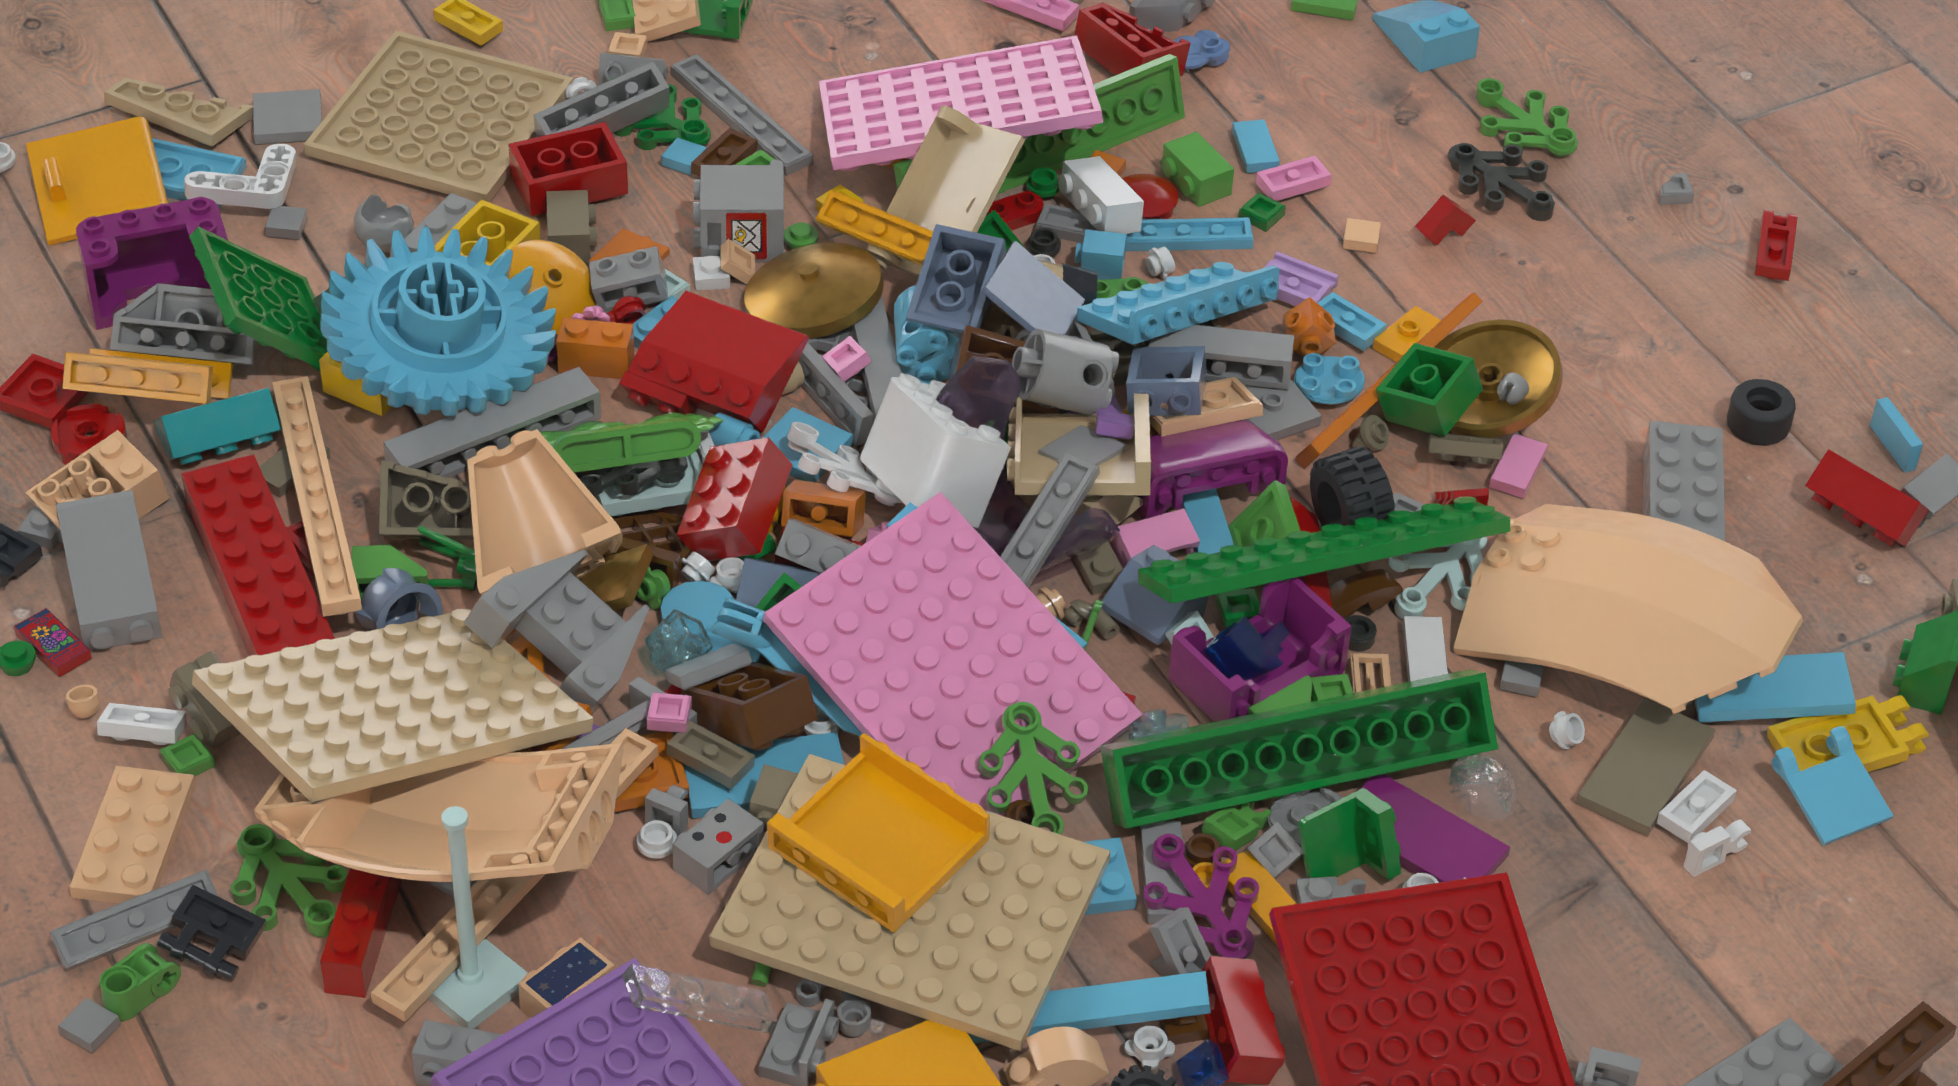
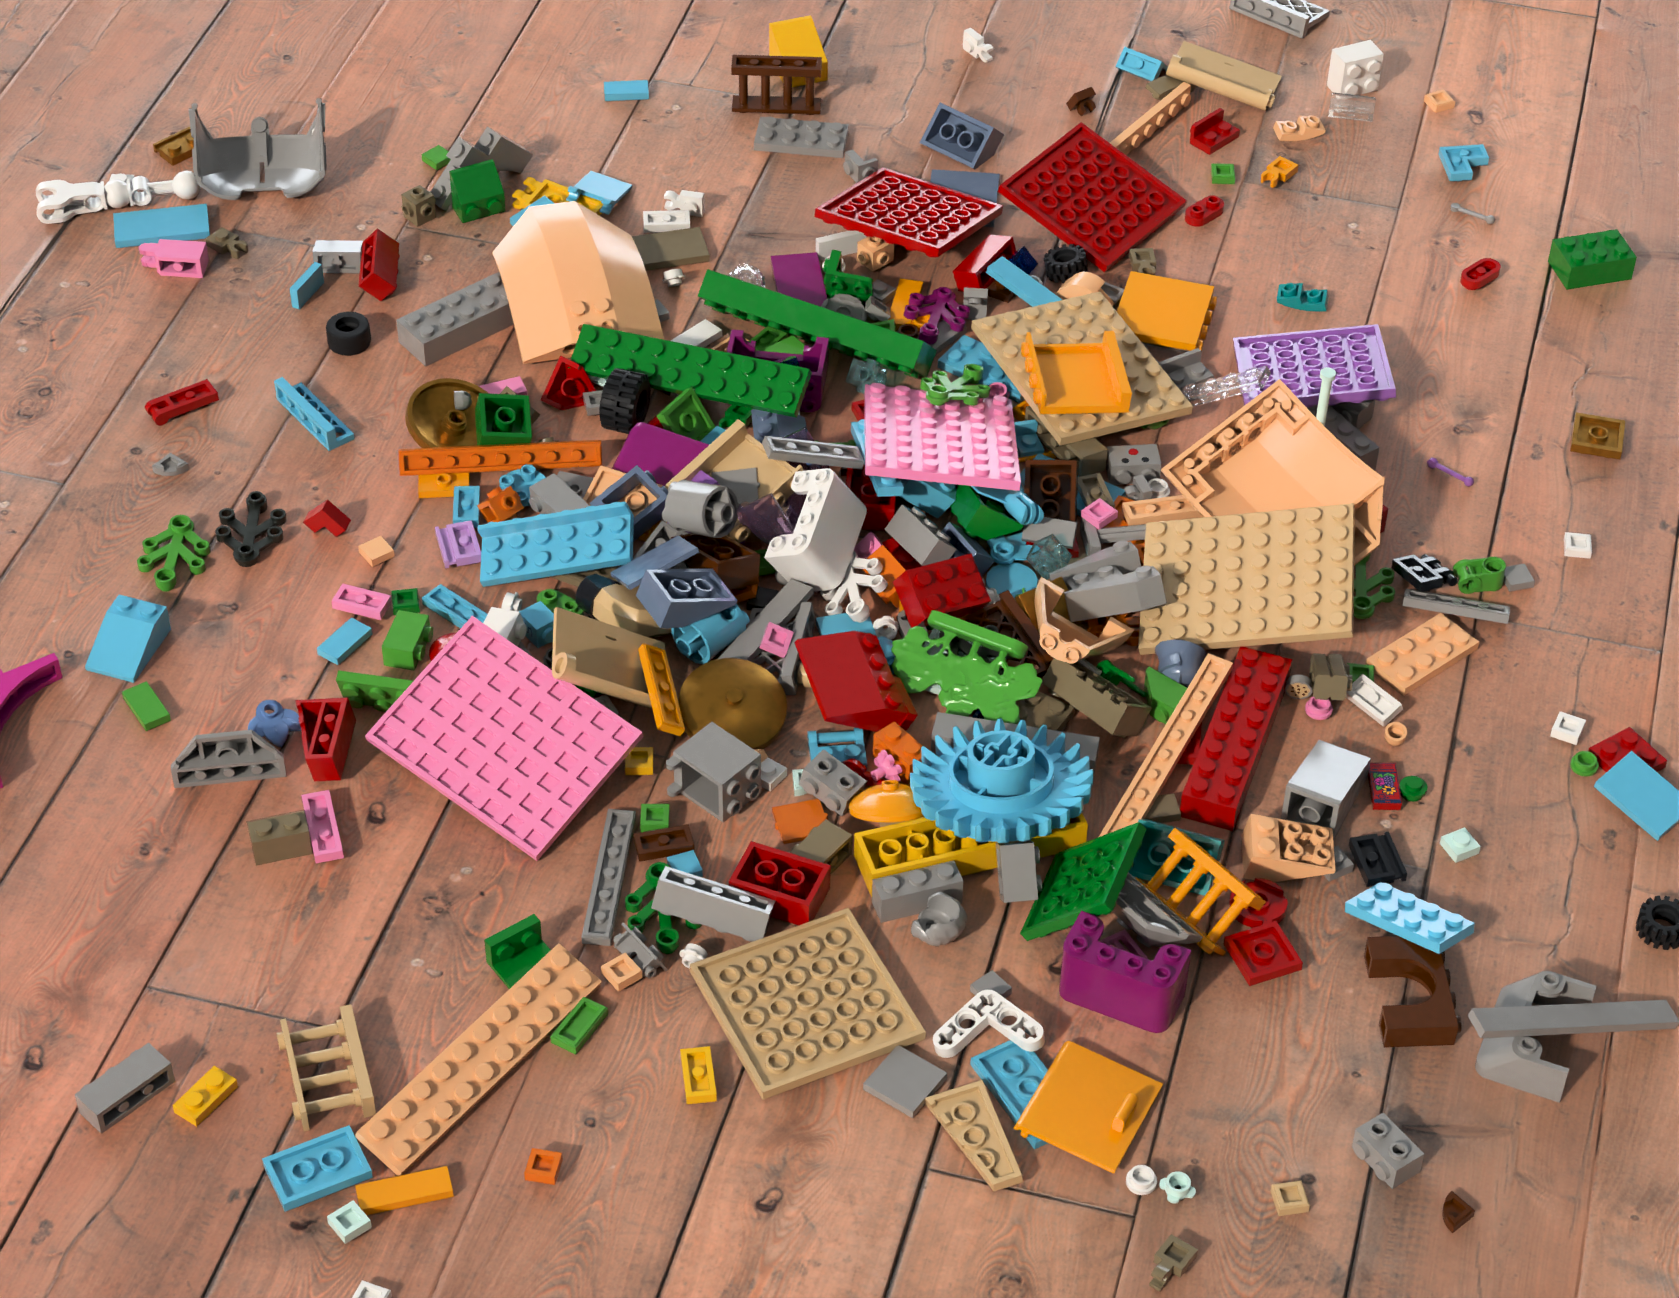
camera: 135 degrees left, 0 degrees up
(1645, 307) = (313, 420): none -> medium azure fence

